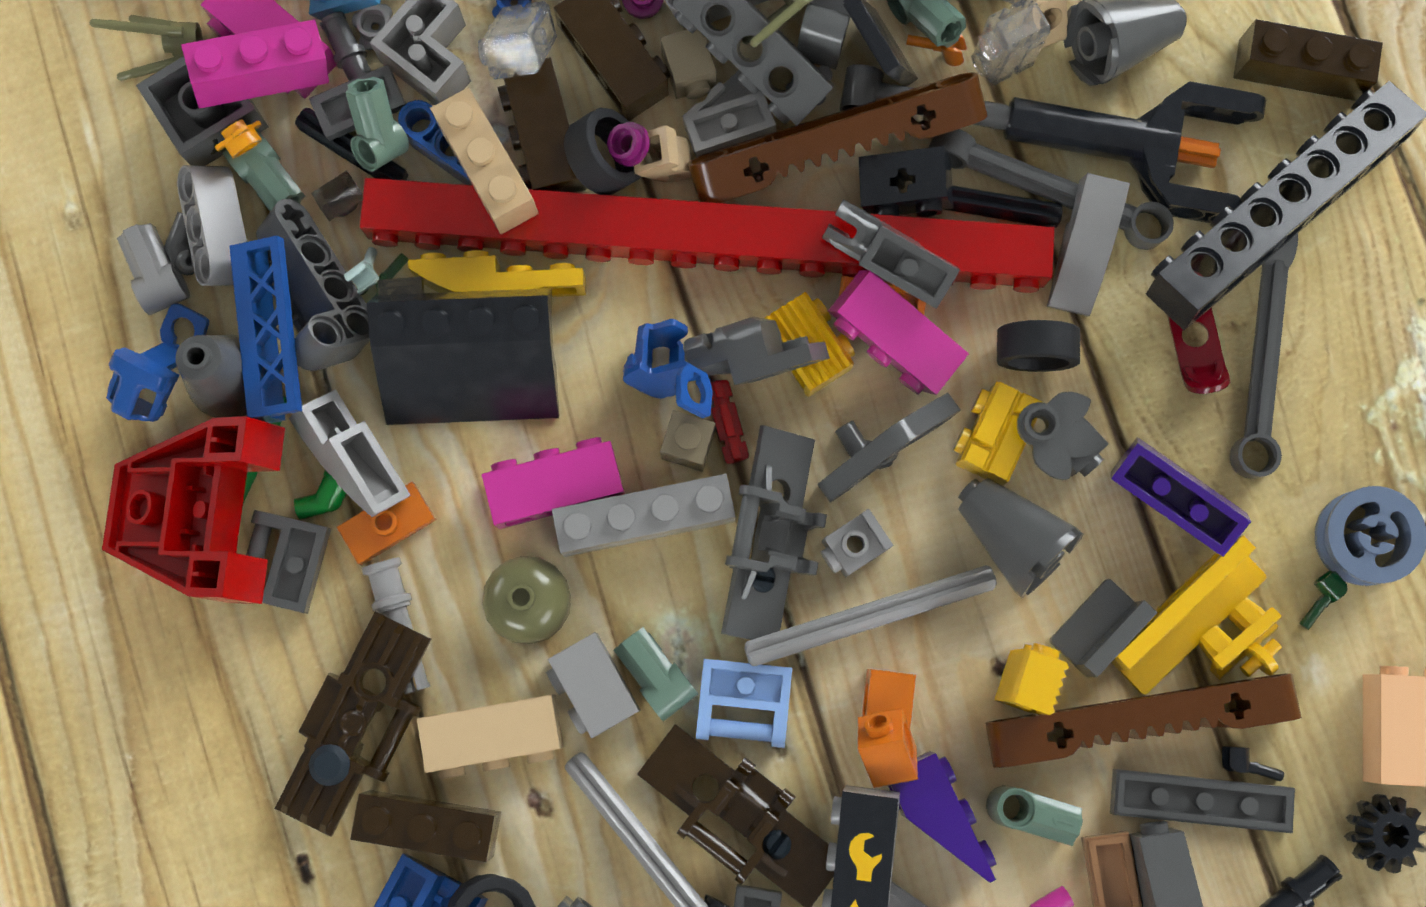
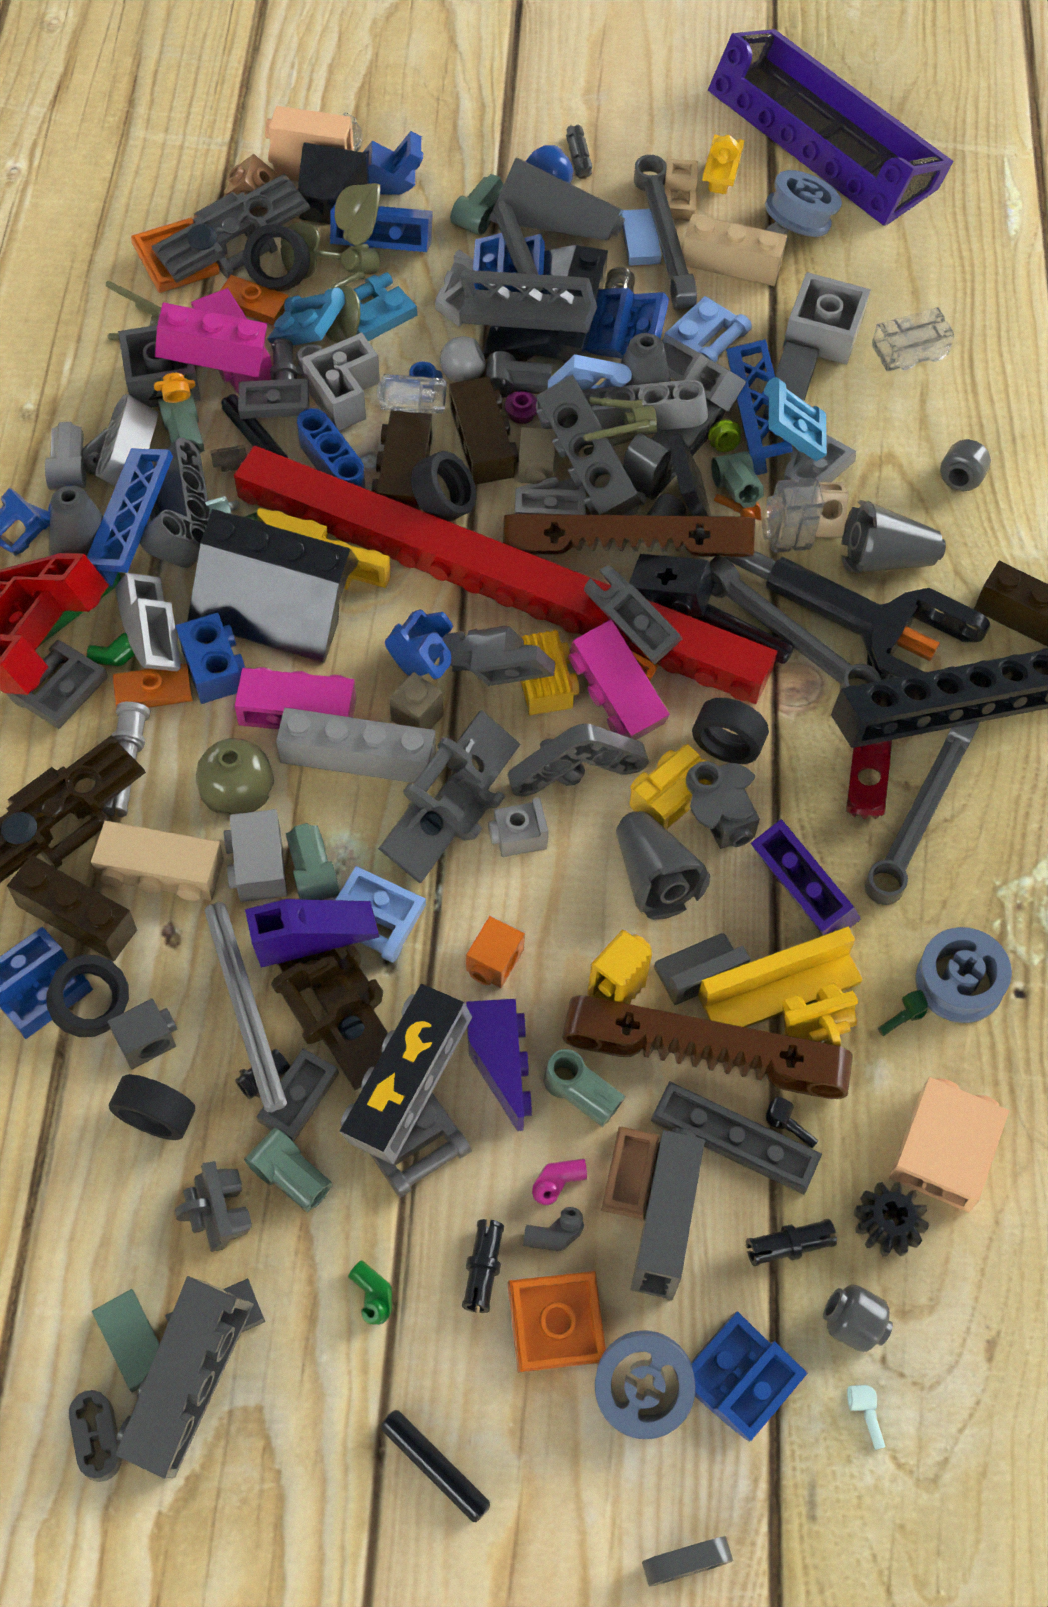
camera: 20 degrees right, 20 degrees down
(378, 134) = (277, 420): sand green piece -> none
(429, 472) = (210, 657): none -> blue brick
(484, 160) = (348, 456): tan brick -> none
(620, 139) = (462, 482): magenta plate -> none
(668, 156) = (490, 507): tan leg -> none
(693, 758) = (307, 927): none -> dark purple slope
(728, 423) = (455, 707): red axle -> none
(869, 615) = (508, 883): light grey axle -> none
(887, 748) = (475, 973): orange brick -> none
(1087, 243) = (802, 675): light grey slope -> none

